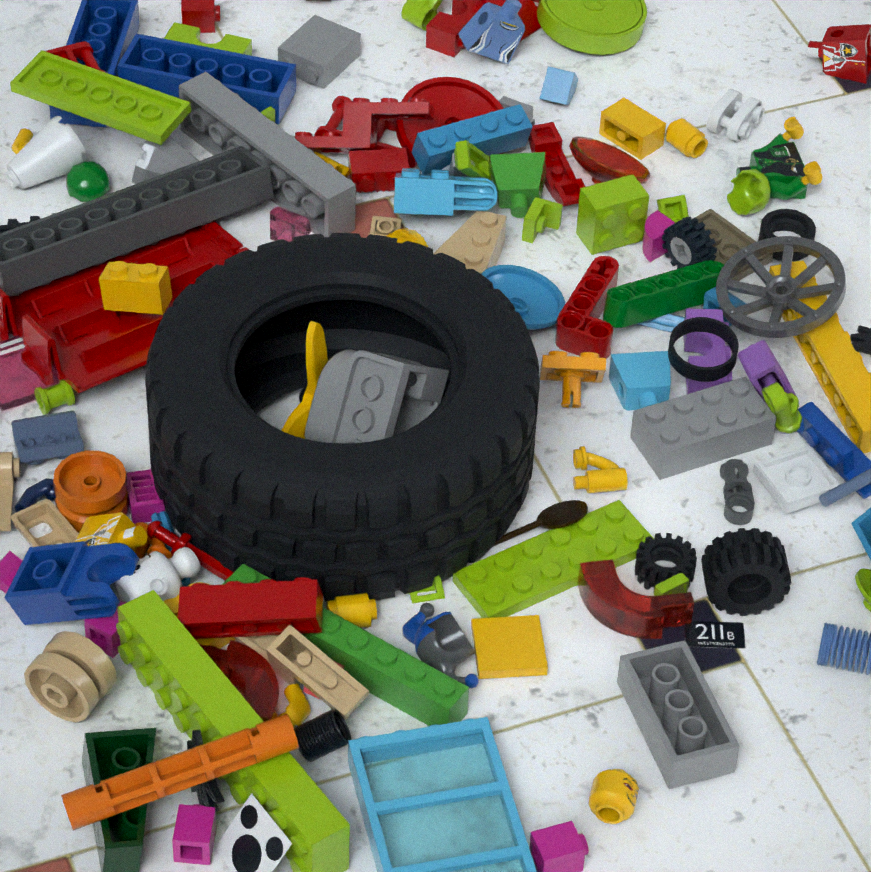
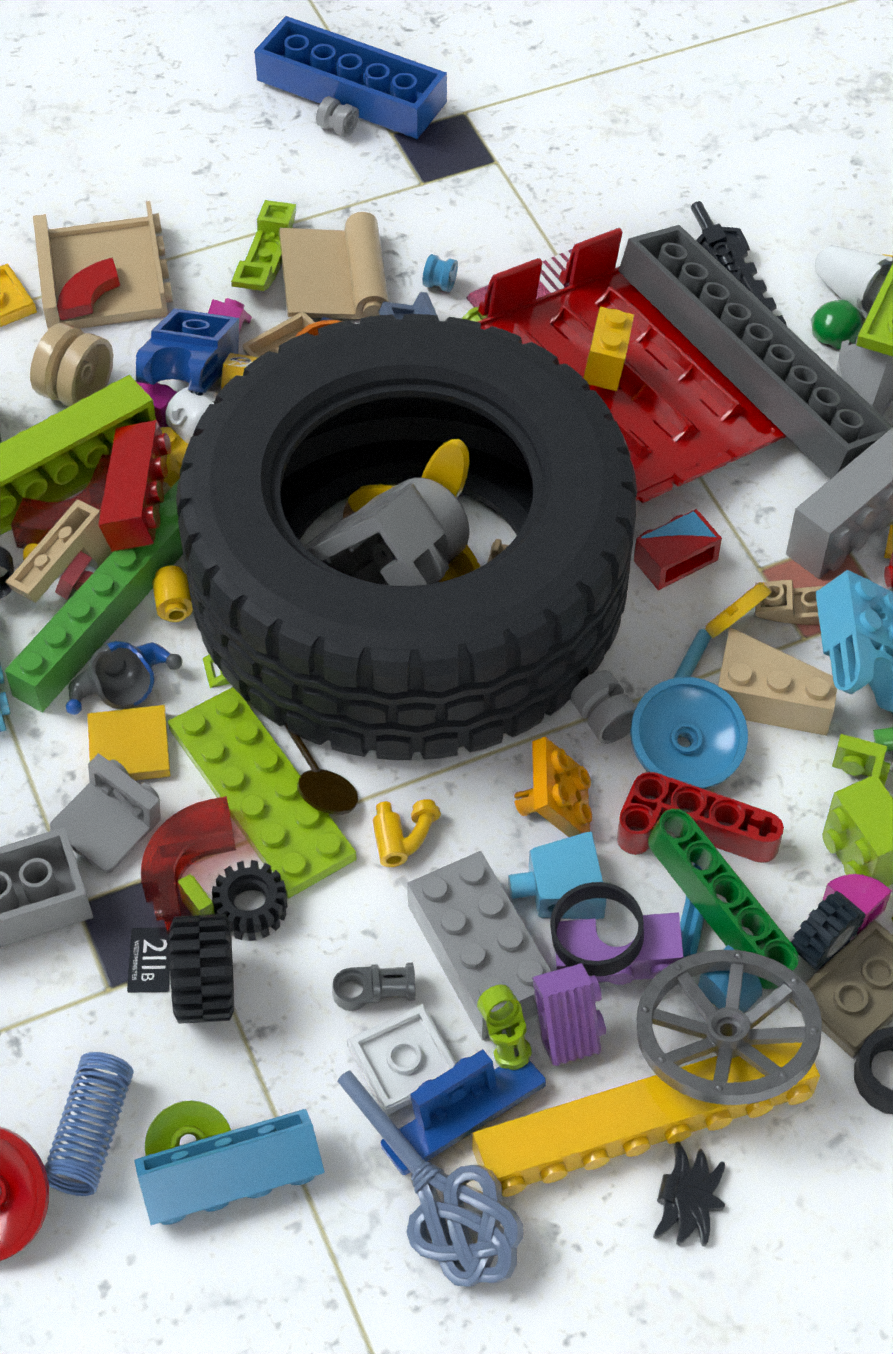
camera: 90 degrees right, 10 degrees up
(287, 224) = (791, 495): clear pink brick -> none
(584, 649) = (109, 815): none -> light grey bracket

